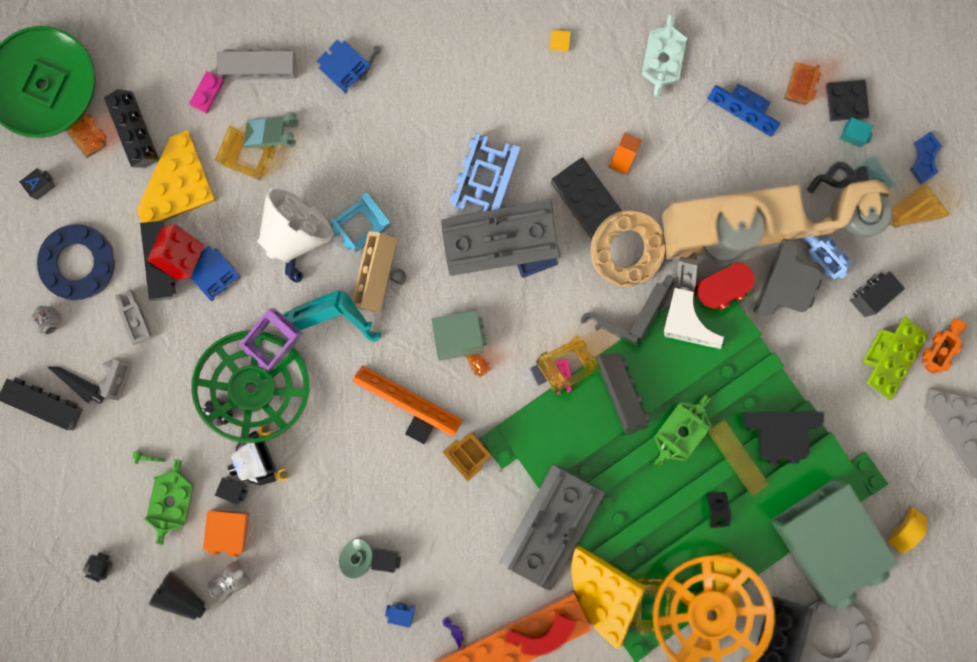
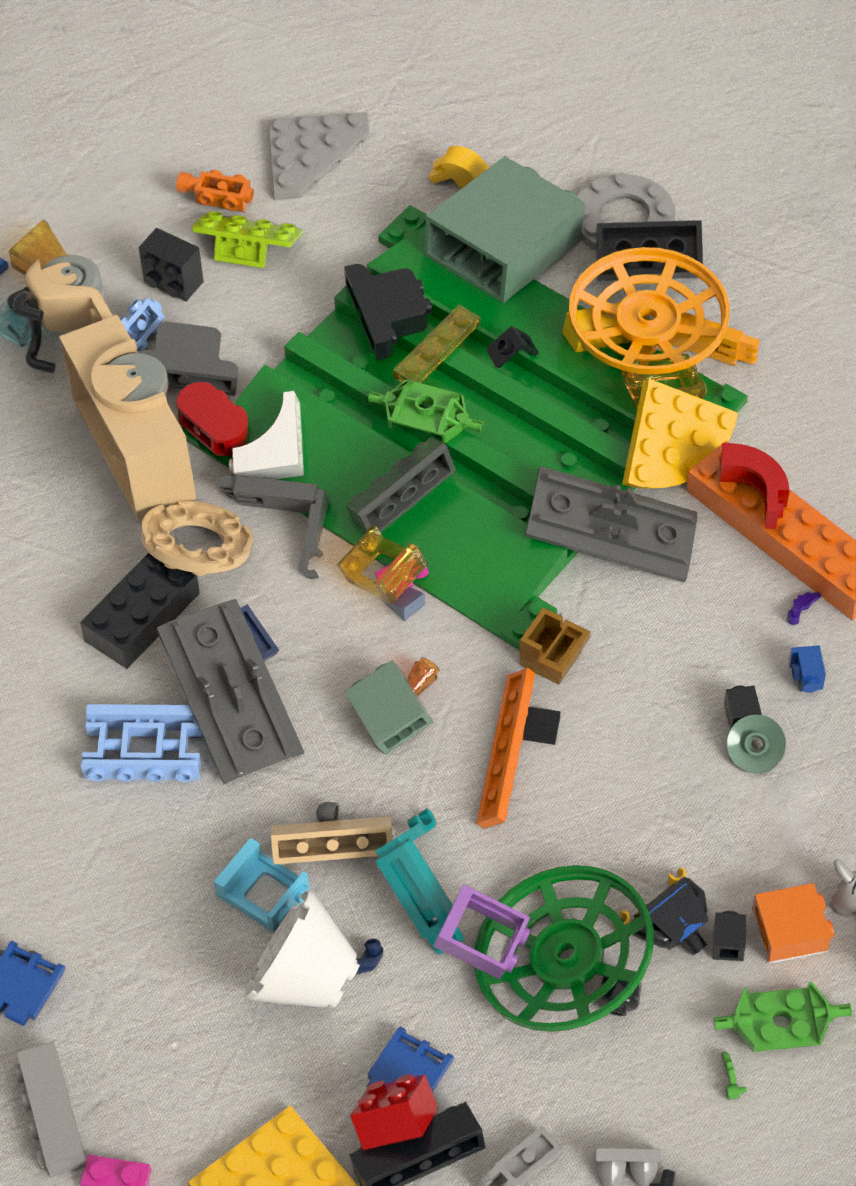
camera: 110 degrees left, 30 degrees down
(231, 148) = (196, 1108): clear yellow window -> none
(270, 131) = (158, 1054): sand green flag -> none
(625, 153) = (58, 586): orange slope -> none
(688, 272) = (209, 461): light grey tile -> none

